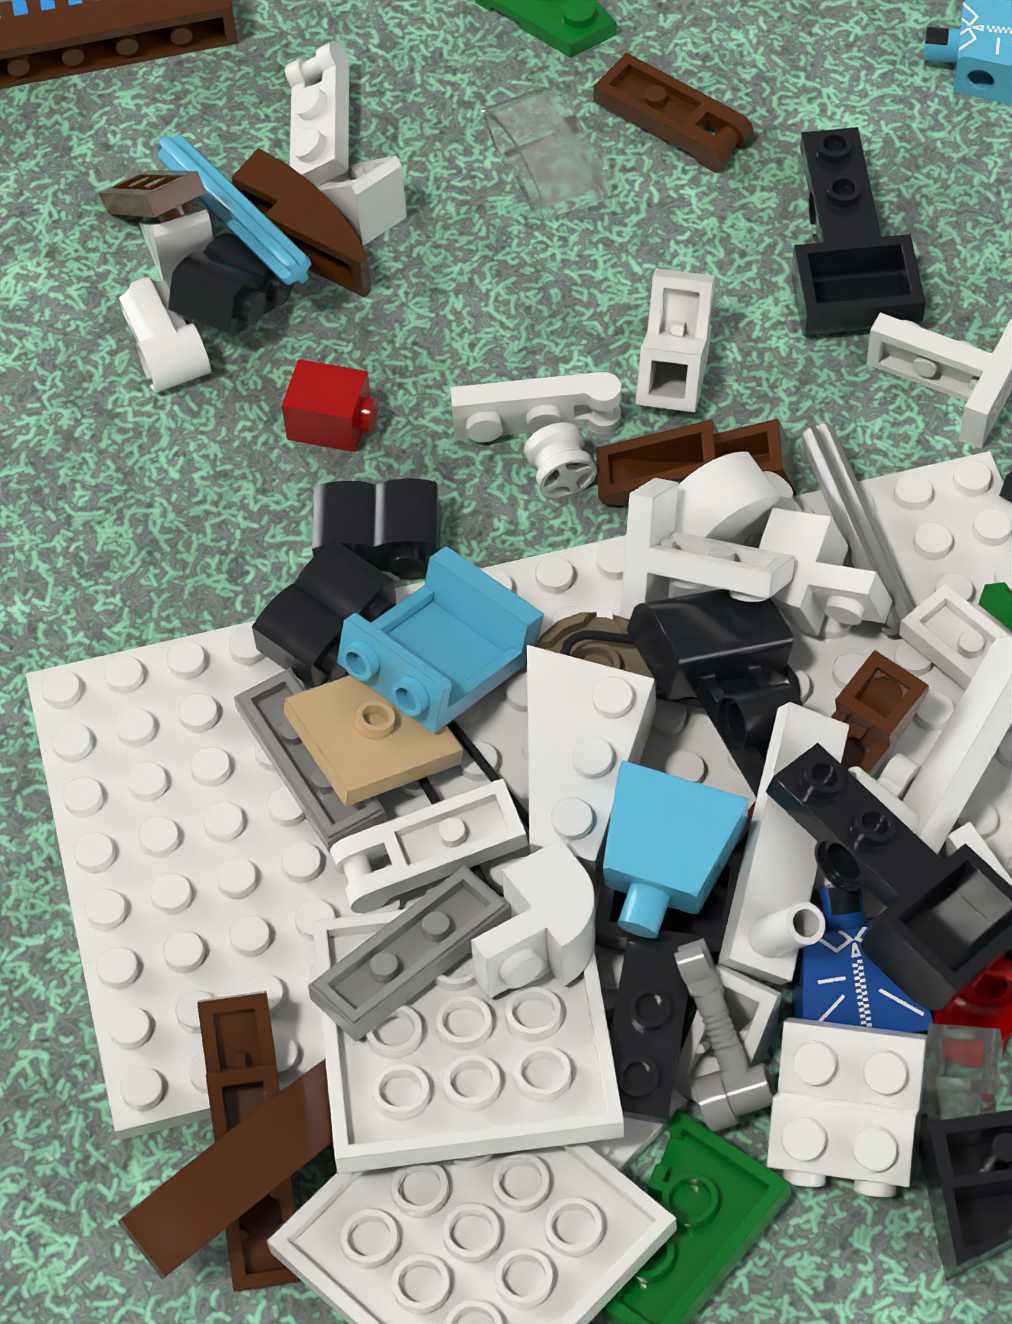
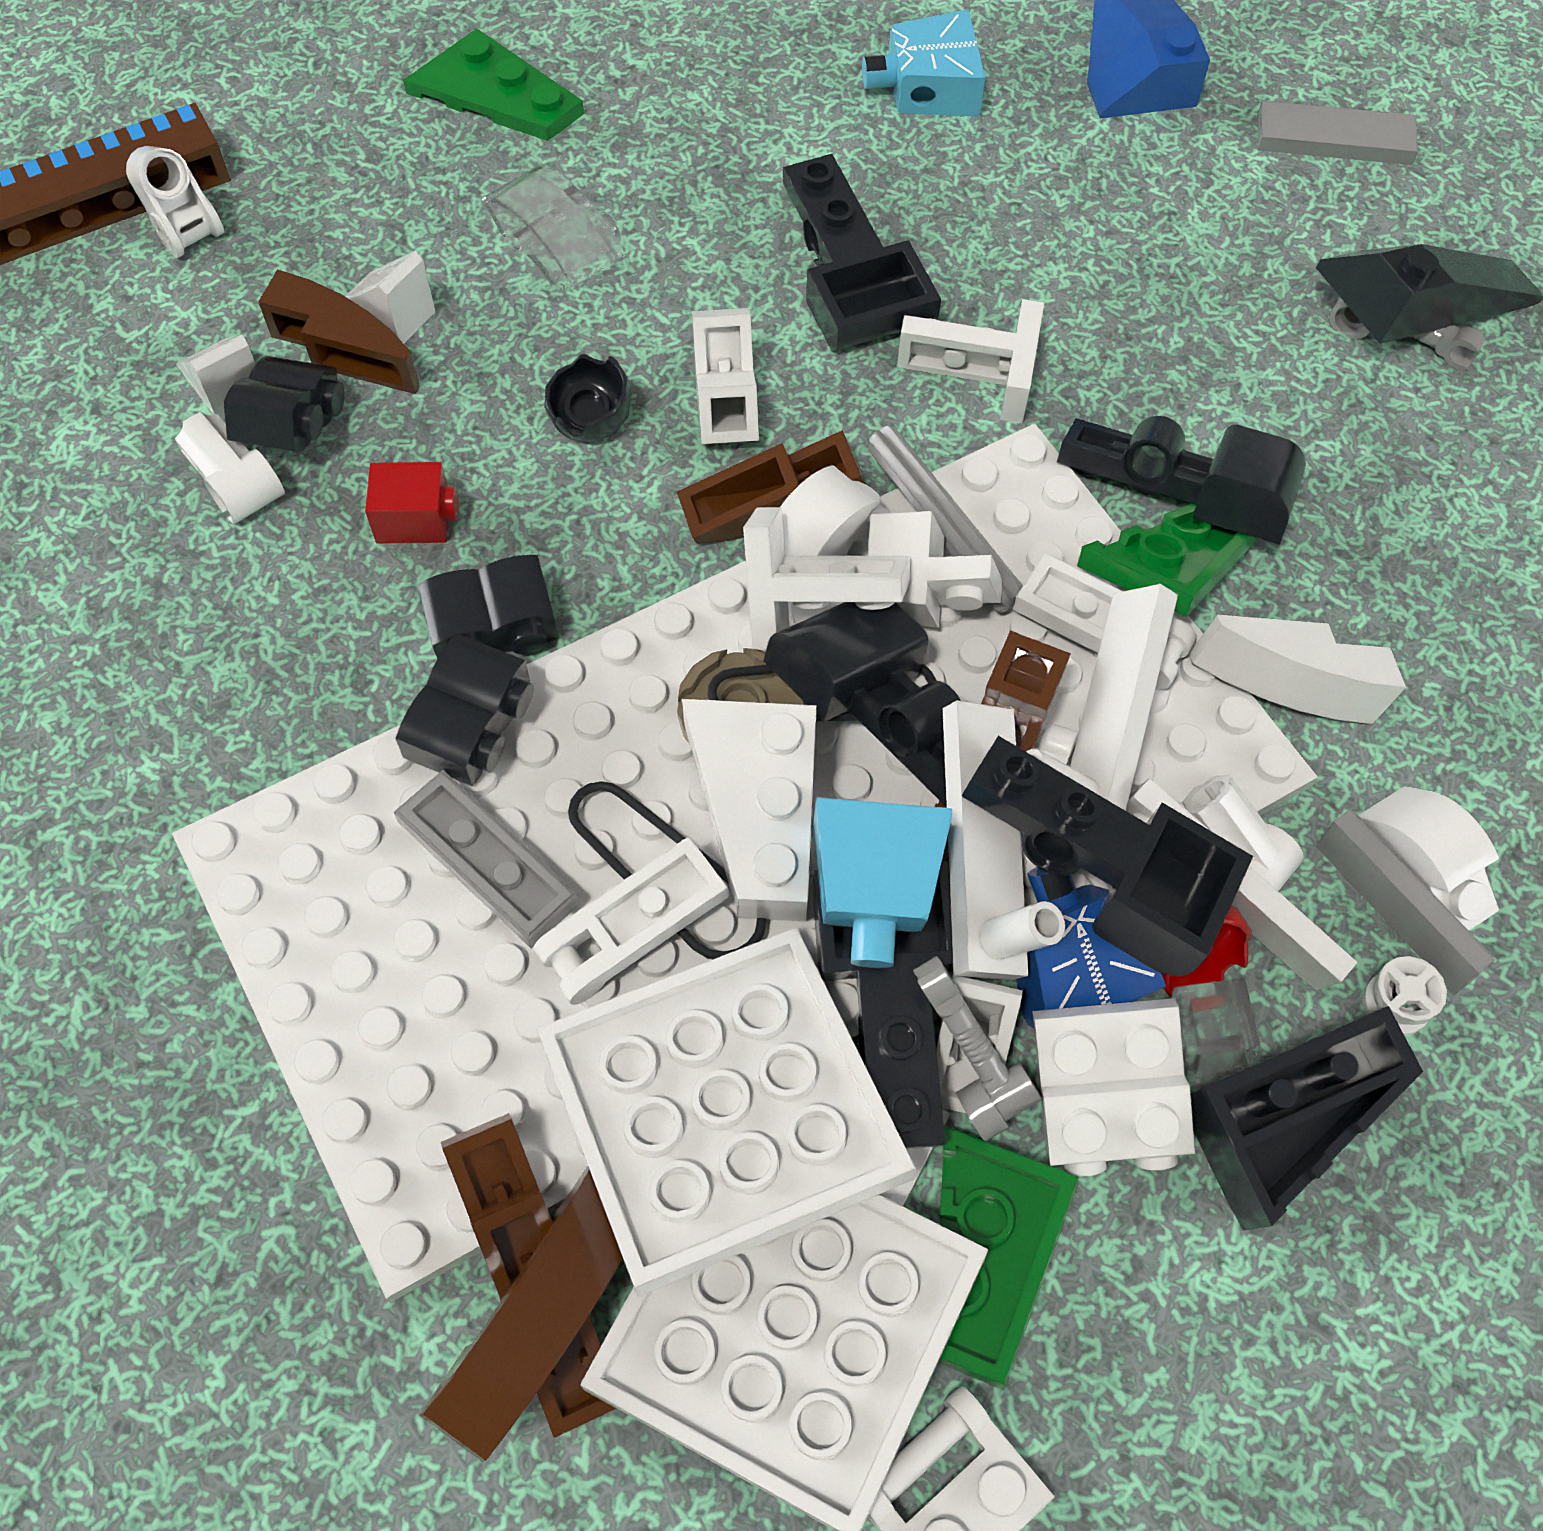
camera: 20 degrees left, 5 degrees up
(154, 195) = (186, 332): plate -> none
(175, 67) = (177, 208): none -> white piece
(238, 212) = (270, 333): medium azure axle -> none
(320, 114) = (328, 229): white plate -> none
(366, 740) = (543, 817): tan plate -> none
(408, 953) = (646, 1042): light grey tile -> none
(442, 642) = (589, 712): medium azure panel -> none
(528, 405) = (610, 464): white plate -> none
(532, 336) = (588, 398): none -> black hair
(548, 925) = (785, 970): white brick -> none
(560, 460) = (646, 510): white wheel -> none
(673, 111) = (657, 171): reddish brown plate -> none

